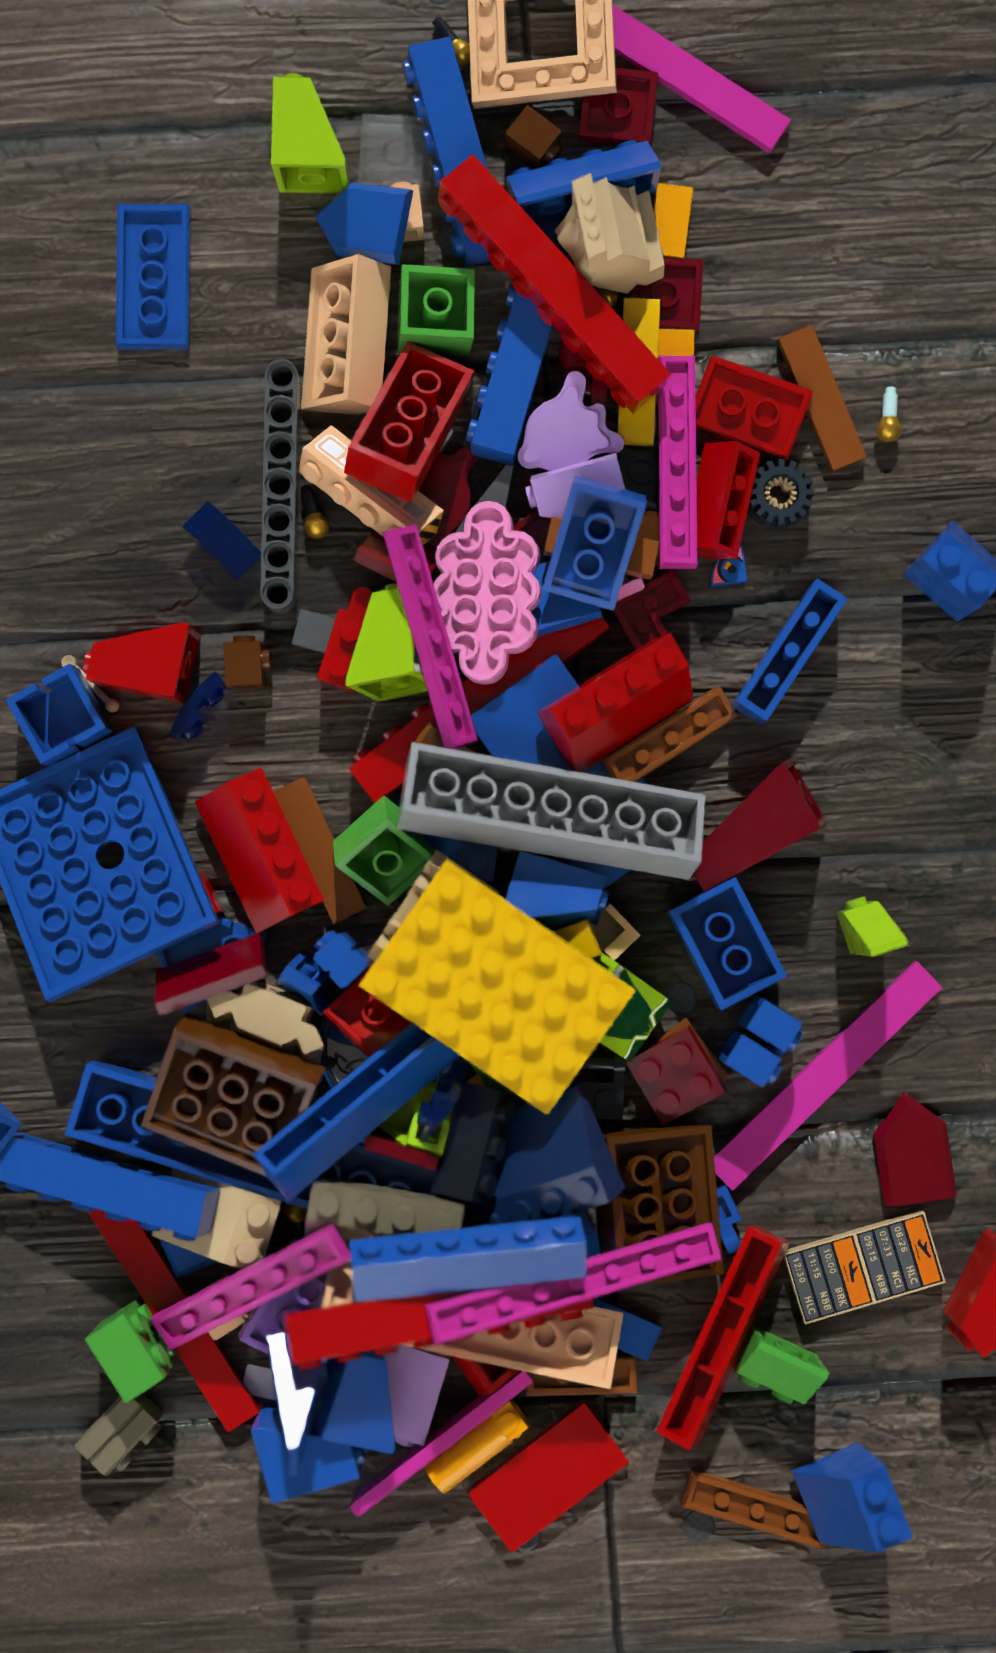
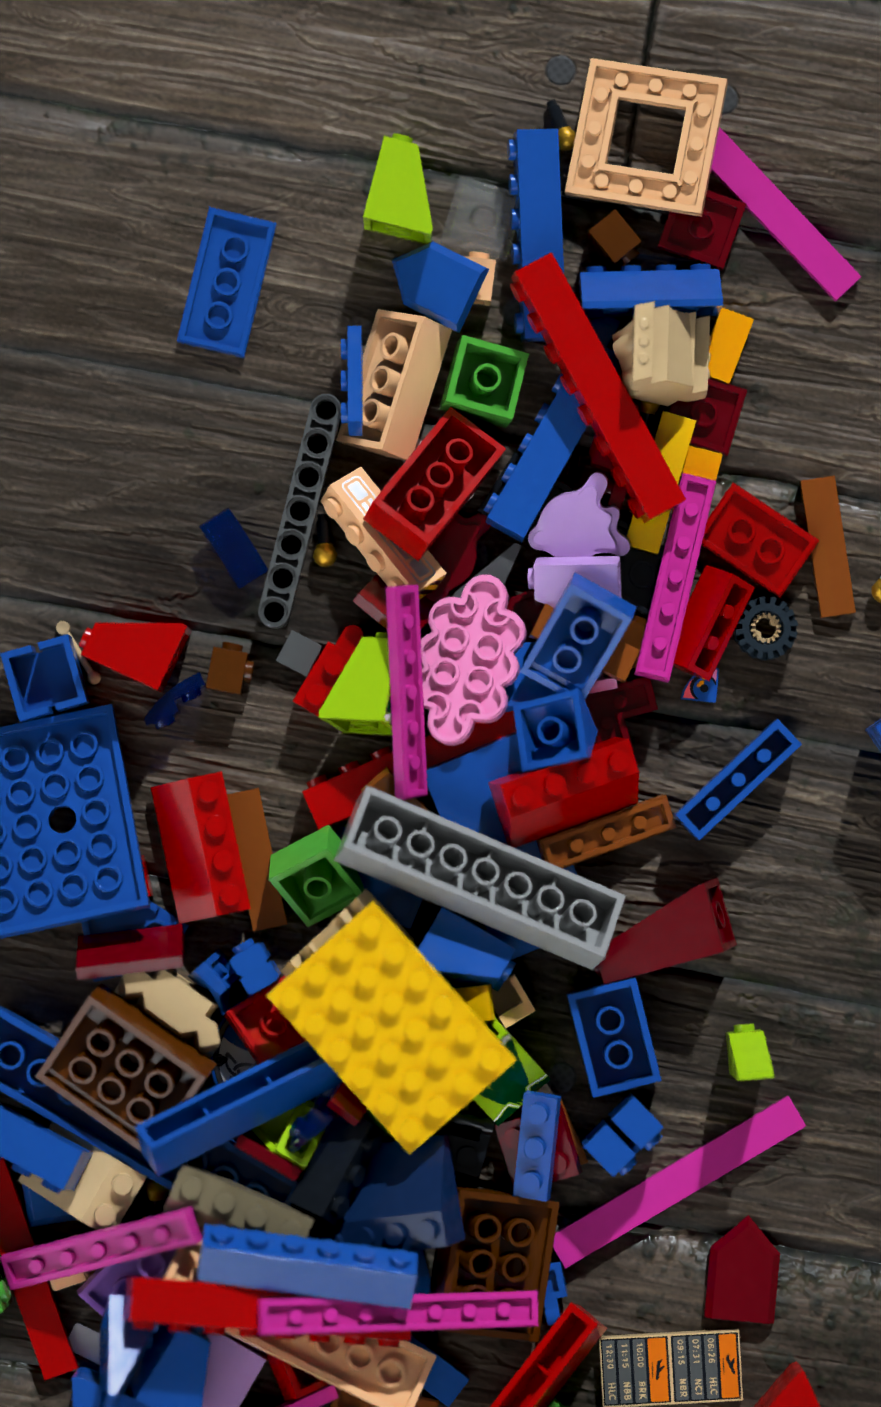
camera: 10 degrees right, 0 degrees up
(301, 340) = (353, 380): none -> blue plate
(469, 1077) = (347, 1104): none -> dark red tile
(591, 641) = (554, 730): none -> blue slope
(675, 1073) = (537, 1146): none -> blue plate

